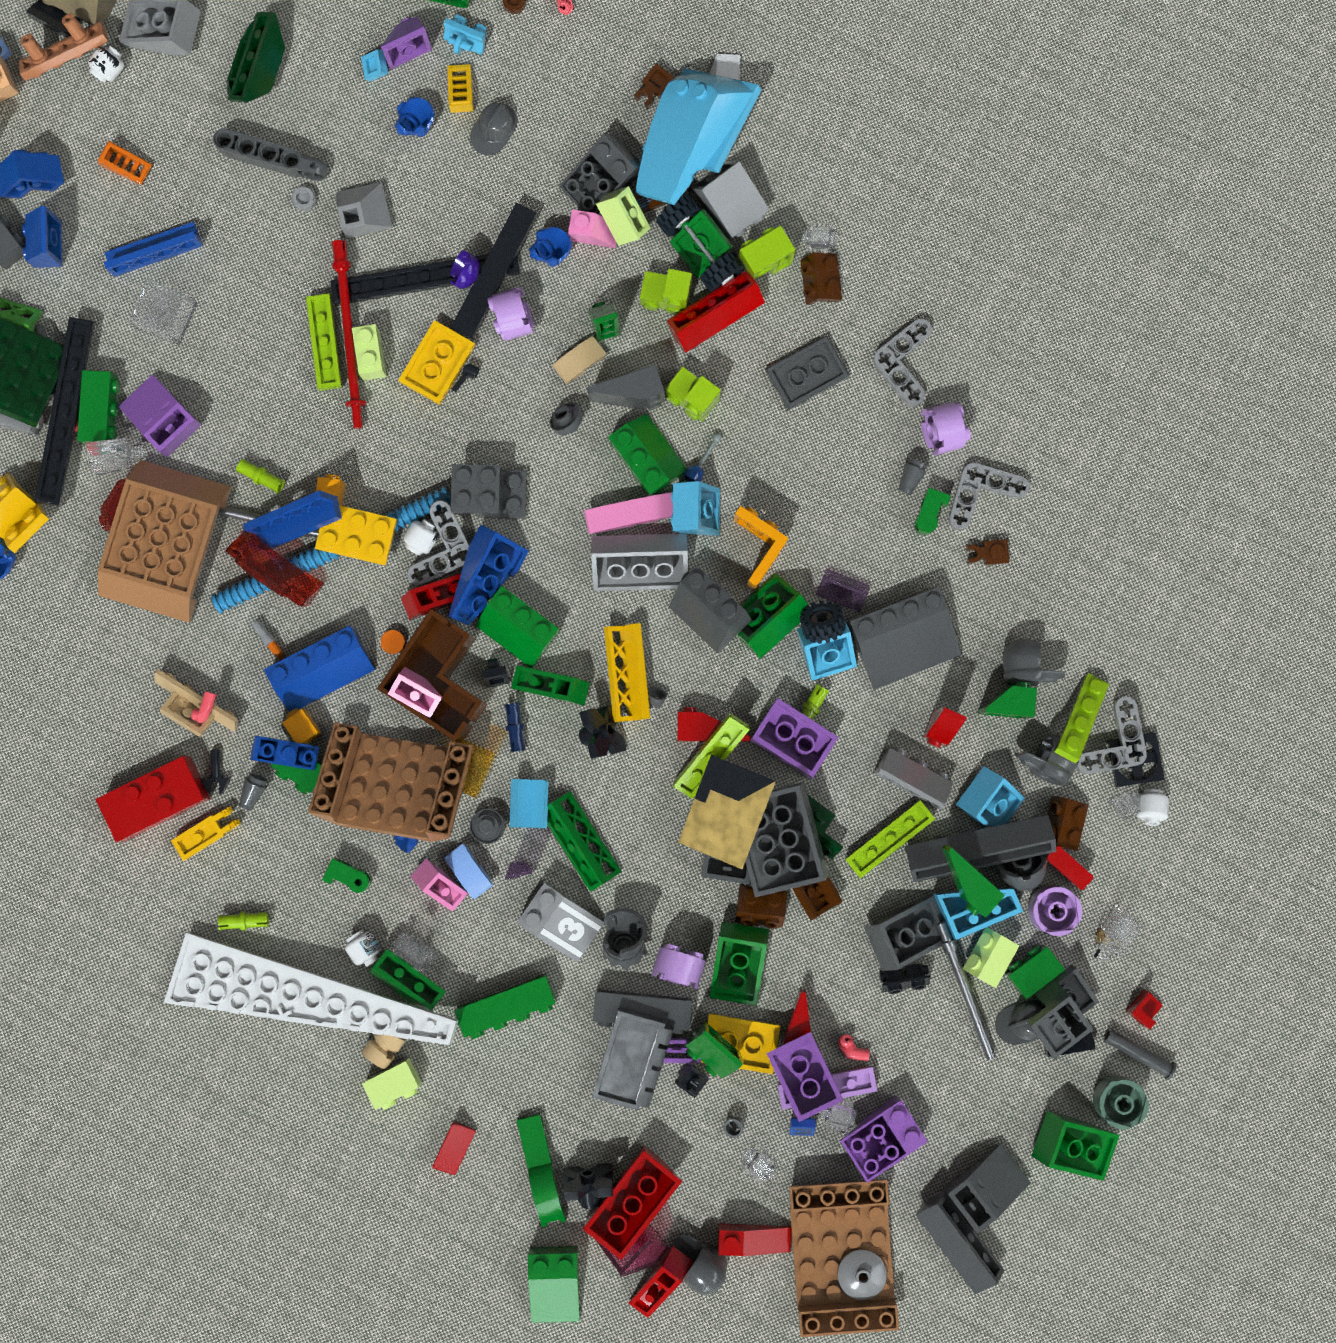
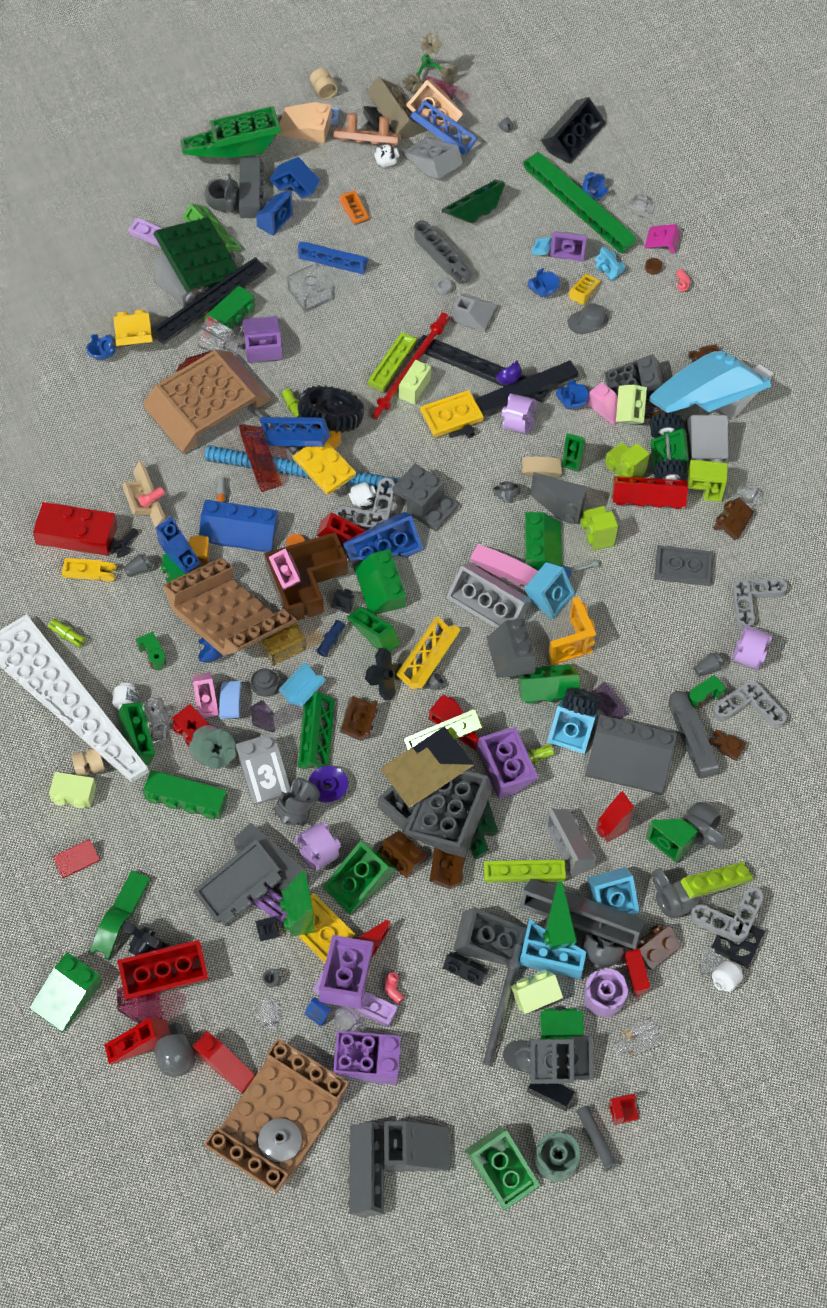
camera: 35 degrees right, 25 degrees down
(306, 442) = (338, 408): none -> black gear
(470, 926) = (187, 722): none -> red brick
(496, 942) = (212, 747): none -> sand green brick
(612, 796) = (359, 718): none -> reddish brown bracket
(639, 877) = (329, 776): none -> dark purple dish
(949, 569) = (693, 735): none -> dark grey piece

